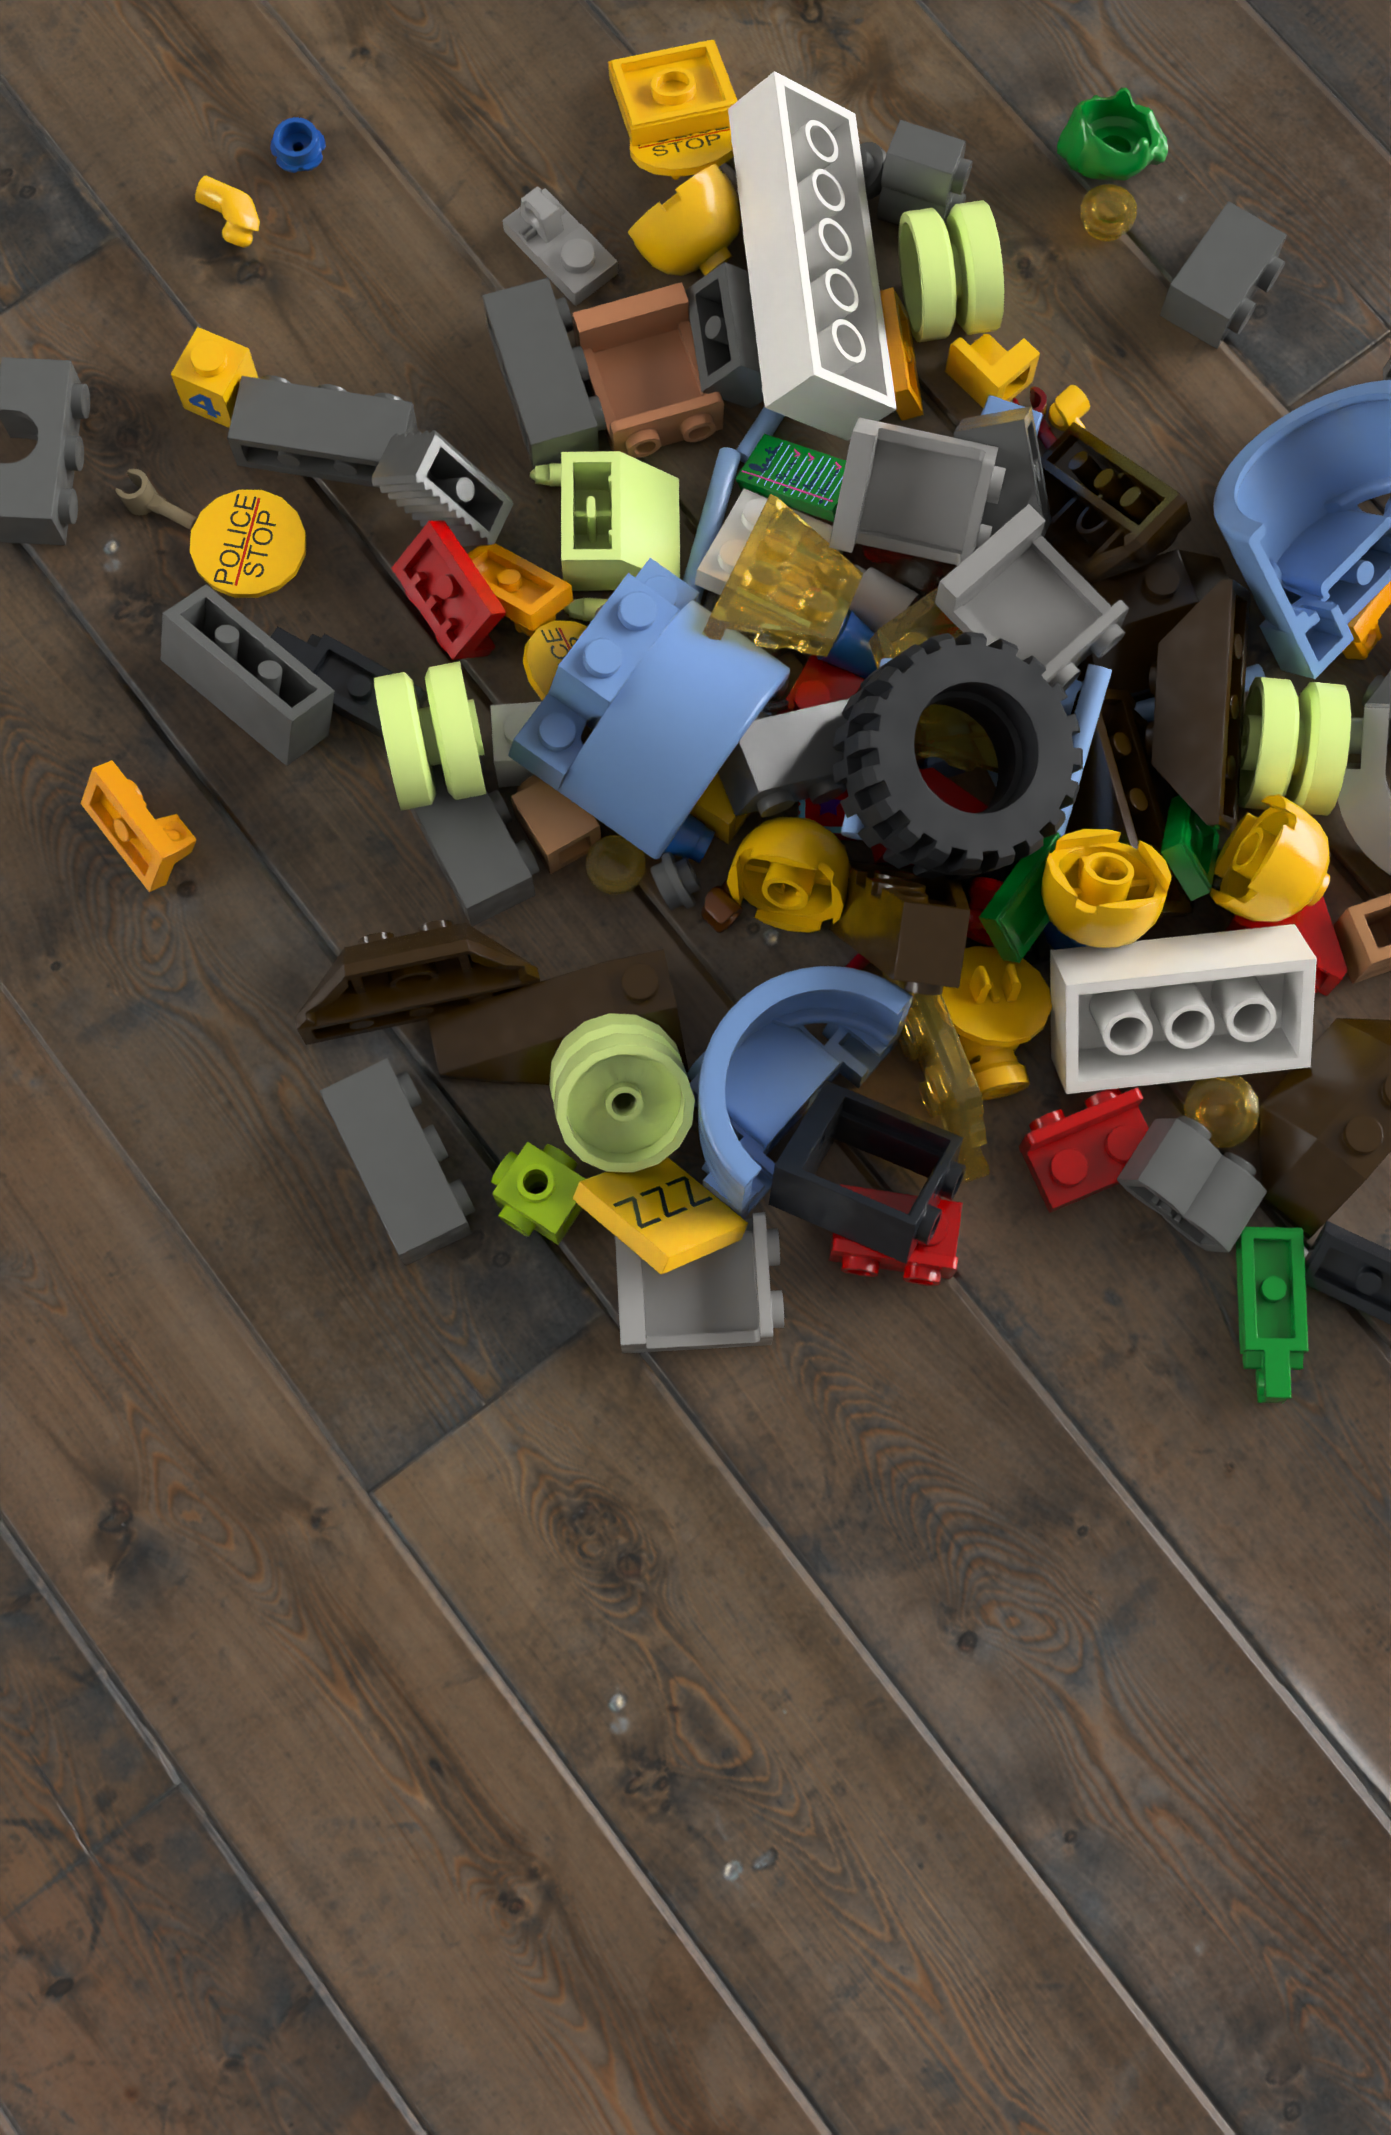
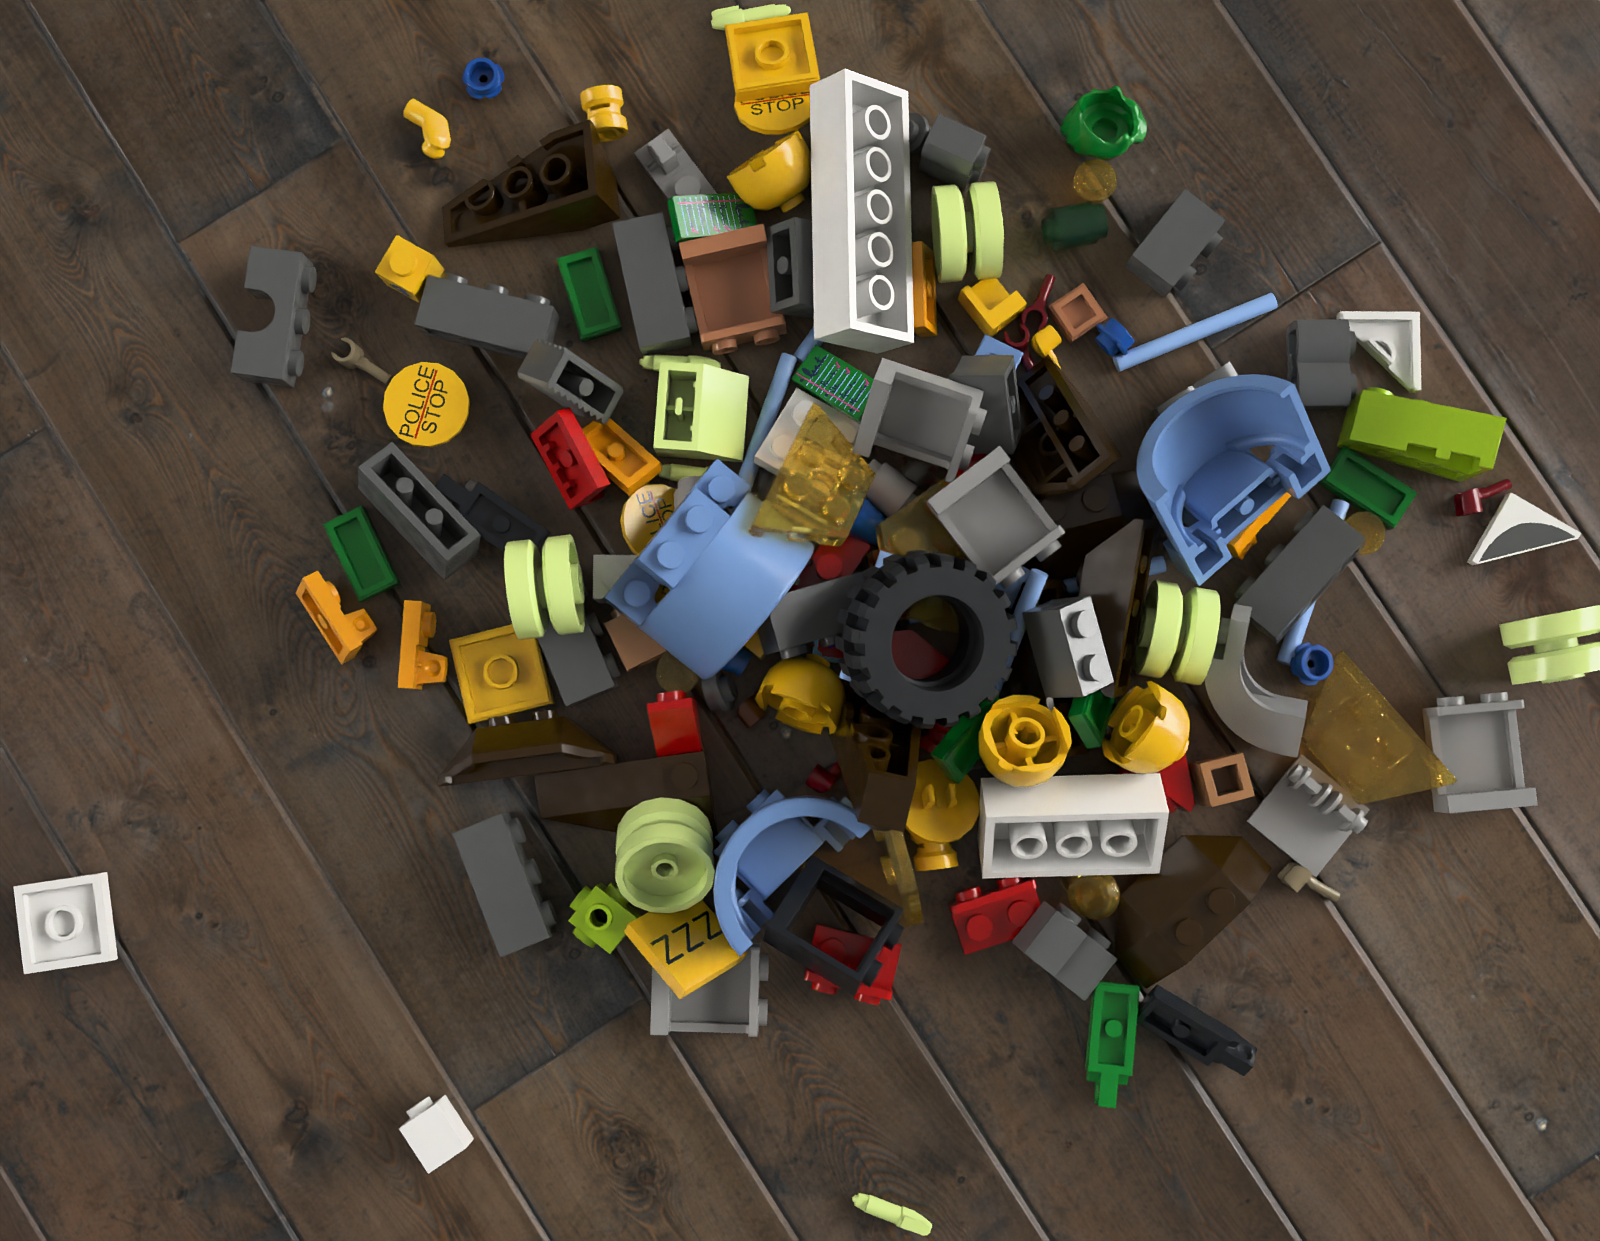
camera: 10 degrees right, 10 degrees up
(169, 746) = (361, 554): none -> green tile
(255, 878) = (415, 664): none -> light orange hinge
(320, 1518) = (435, 1132): none -> white brick
(371, 881) = (500, 674): none -> yellow tile
(395, 273) = (549, 192): none -> dark brown wedge
(457, 396) = (589, 294): none -> green tile
(458, 167) = (603, 108): none -> yellow wheel
(601, 279) = (708, 215): none -> green tile
(603, 53) = (734, 15): none -> yellowish green piece
(619, 912) = (675, 724): none -> red slope
(1001, 1587) = (901, 1216): none -> yellowish green piece
(1053, 368) = (1040, 302): none -> dark red hand
(1089, 264) = (1074, 225): none -> clear green brick
(1105, 373) = (1076, 313): none -> nougat tile
(1150, 758) = (1068, 647): none -> dark grey brick
(1158, 397) = (1113, 338): none -> blue plate
(1262, 385) = (1195, 332): none -> light blue bar

